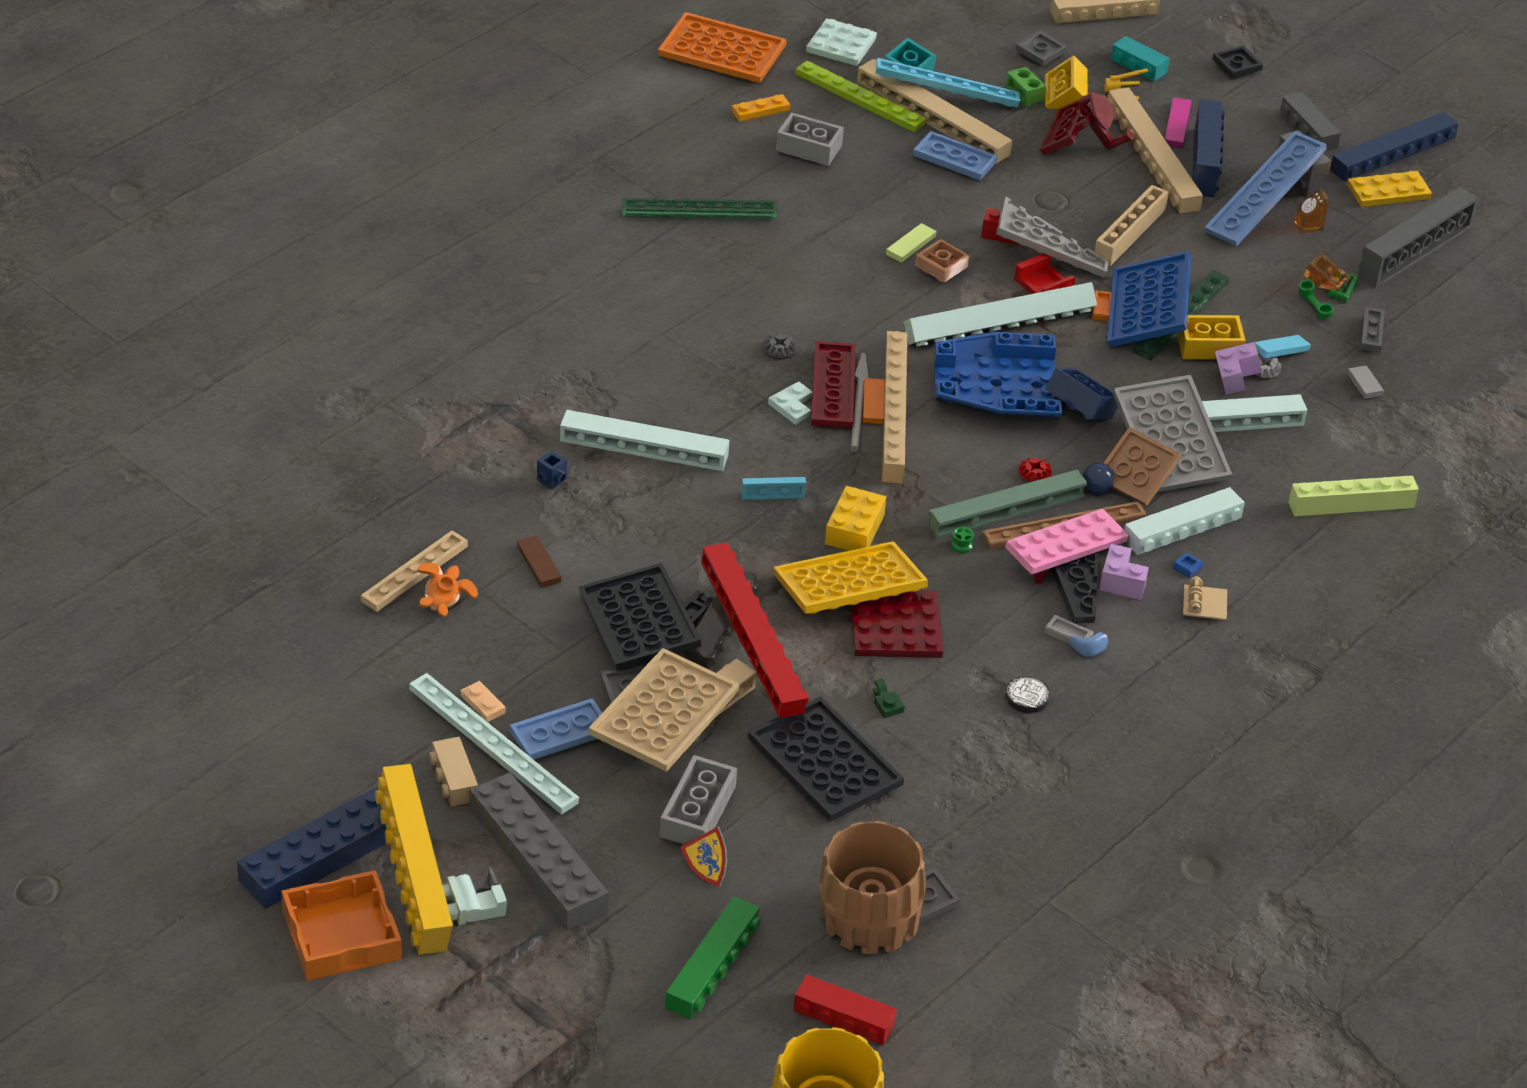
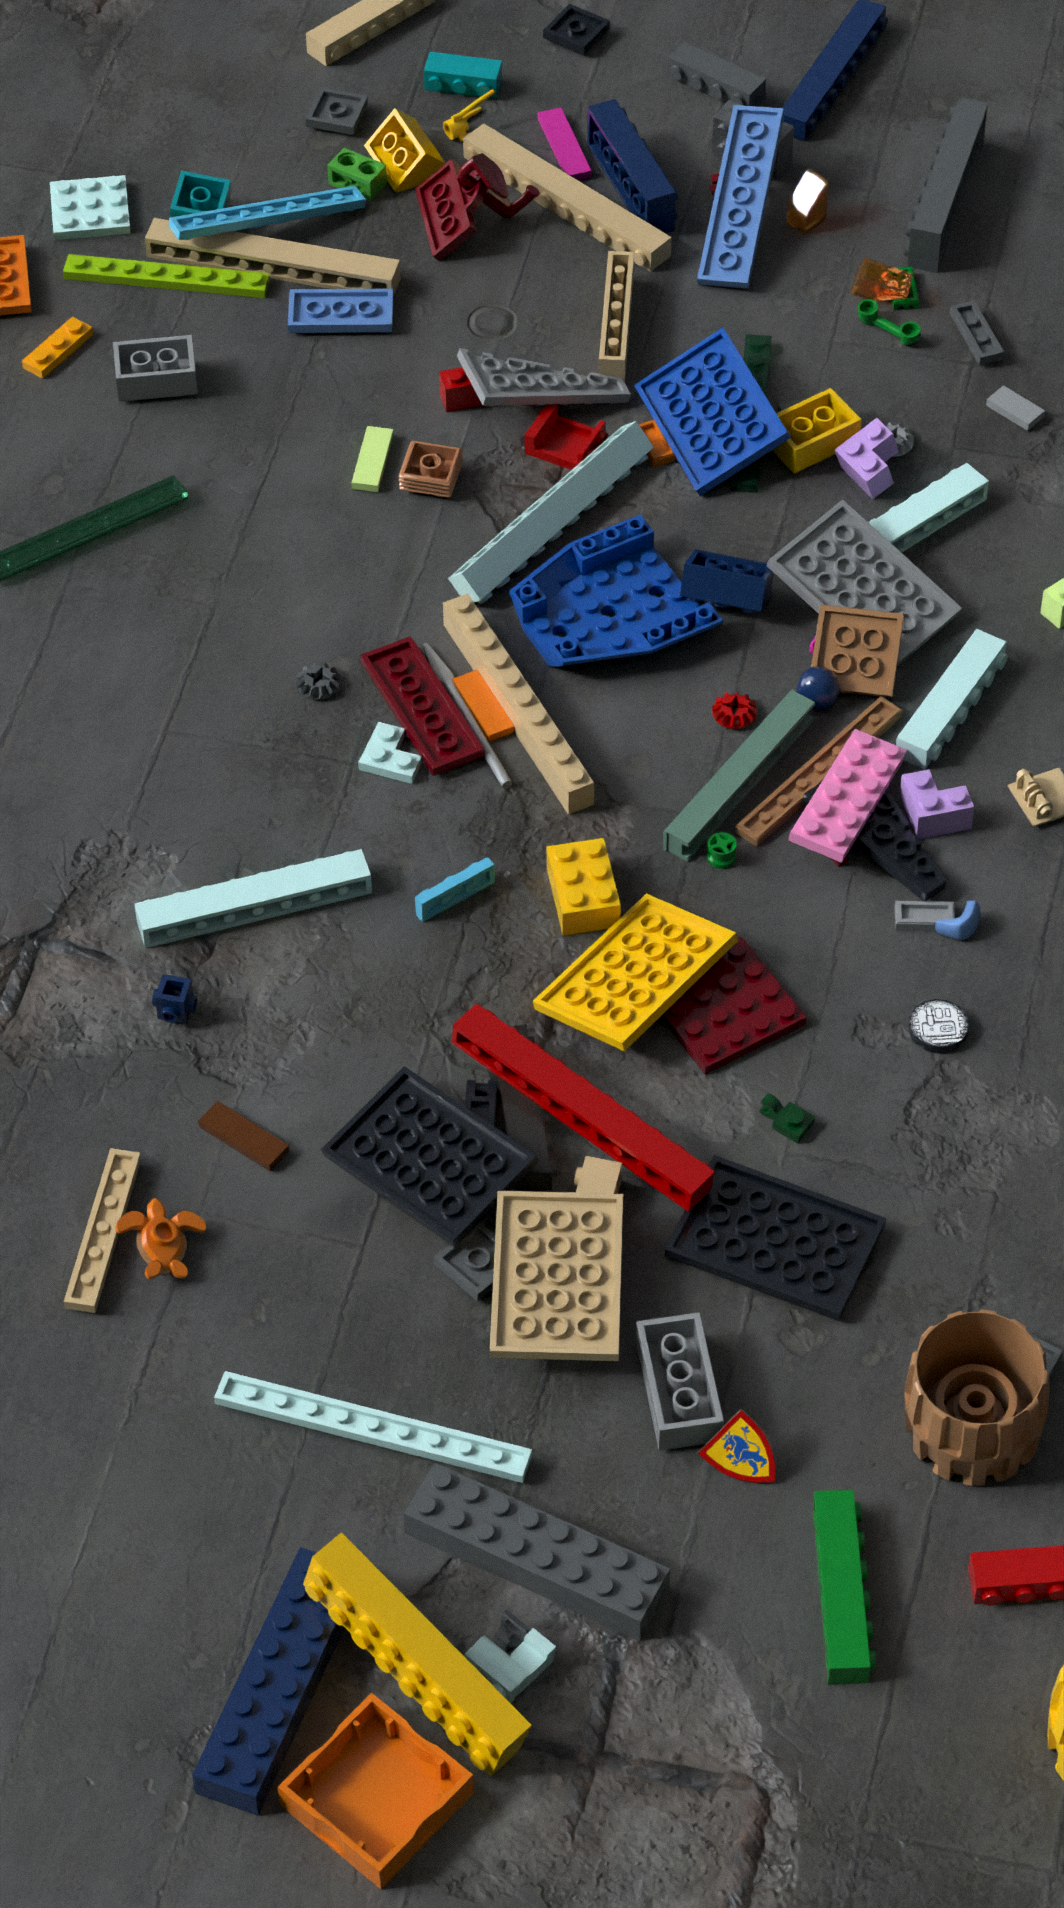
camera: 25 degrees left, 10 degrees up
(453, 770) = (356, 1493): tan brick -> none
(483, 701) = (316, 1373): light nougat plate -> none
(556, 729) = (438, 1364): medium blue plate -> none
(1187, 565) = (992, 755): blue tile -> none
(1282, 346) = (896, 403): medium azure tile -> none
(1389, 188) = (862, 129): yellow plate -> none

